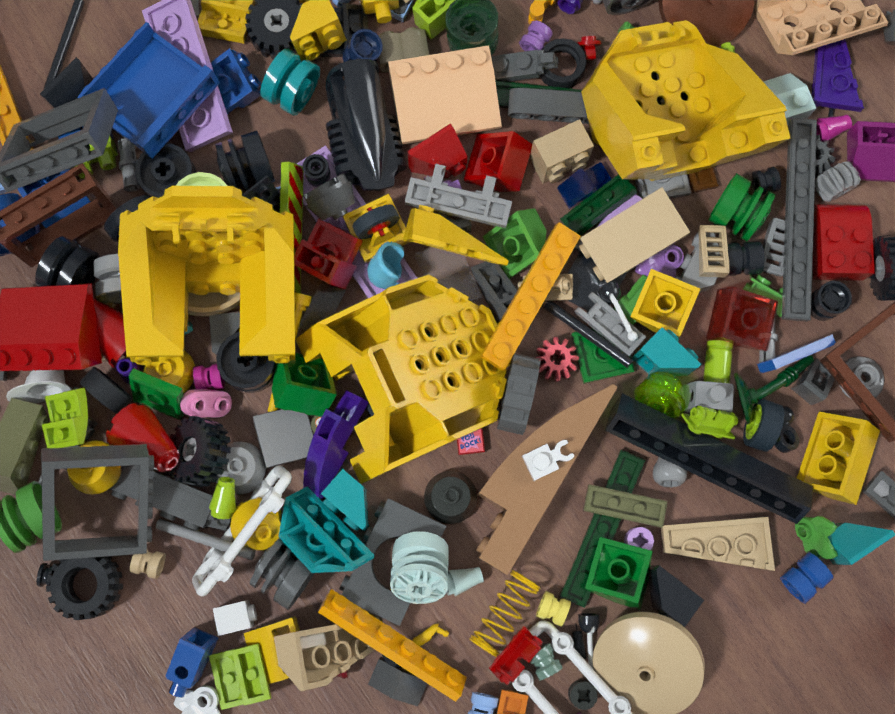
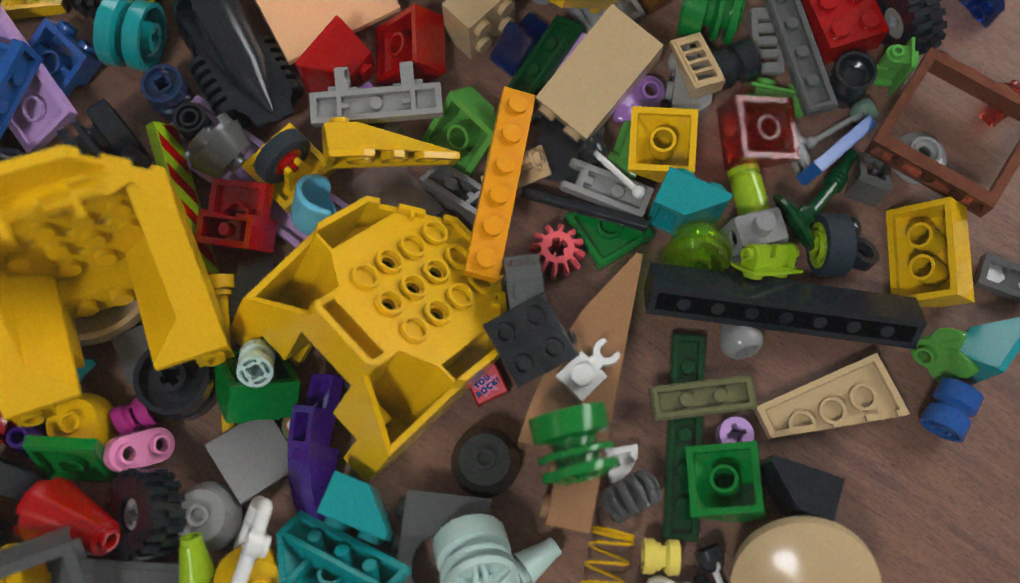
camera: 15 degrees left, 5 degrees down
(303, 136) = (165, 89): none -> dark blue wheel
(310, 372) = (256, 363): none -> light aqua wheel
(513, 424) = (531, 339): none -> black hinge
(517, 509) = (573, 443): none -> green wheel
(547, 558) = (631, 496): none -> dark grey gear
(548, 531) = (627, 458): none -> white tile
(827, 328) = (857, 113): none -> hinge
(868, 303) = (896, 65): none -> bright green hinge

